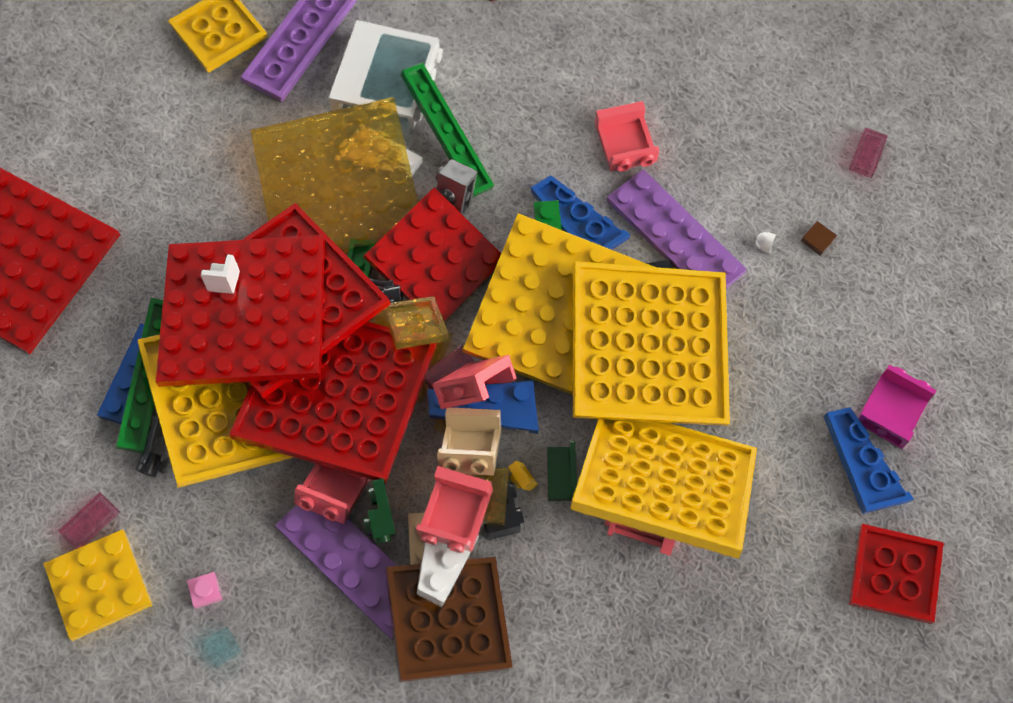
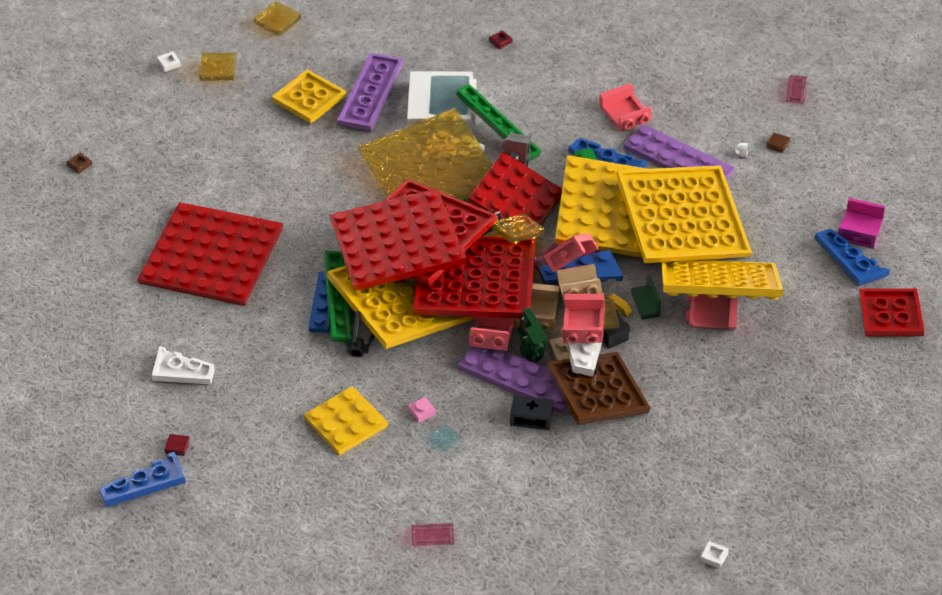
camera: 10 degrees left, 20 degrees down
(89, 521) = (325, 387): clear pink tile -> none
(222, 276) = (378, 218): white panel -> none
(356, 648) = (531, 412): none -> black brick
(416, 455) = (544, 305): none -> tan panel

